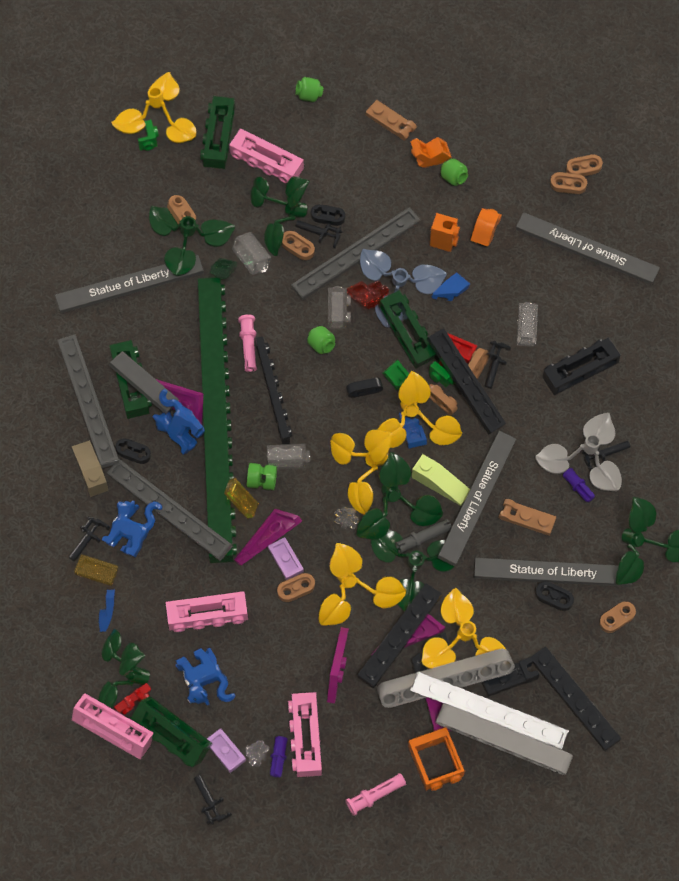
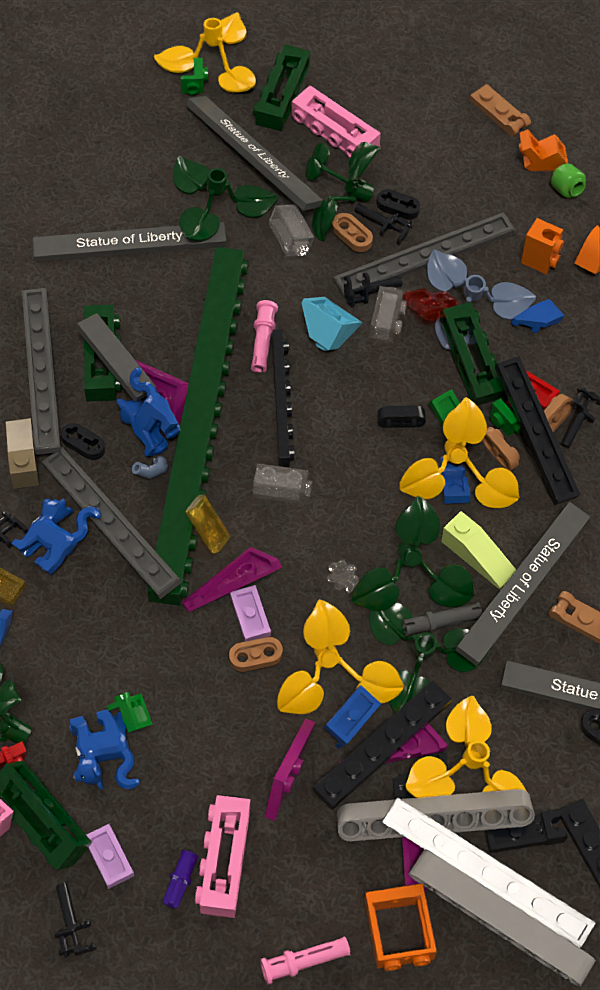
camera: 10 degrees right, 5 degrees down
(179, 208) = (213, 159): medium nougat plate -> none
(189, 465) = (149, 472): none -> sand blue arm
(208, 193) = (254, 153): none -> dark grey tile
(219, 646) = (133, 711): none -> green bracket
(223, 268) = (251, 241): clear green plate -> none
(234, 605) = (89, 665): bright pink brick -> none
(254, 477) = (233, 500): bright green wheel -> none
(256, 753) = (150, 868): clear plant -> none
(295, 322) = (328, 322): none -> medium azure slope
(309, 89) = (405, 58): bright green head -> none
(319, 289) = (366, 287): none -> black piece
(321, 340) = (357, 348): bright green head -> none
(374, 619) = (352, 716): none -> blue panel
(378, 445) = (402, 485): yellow plant -> none

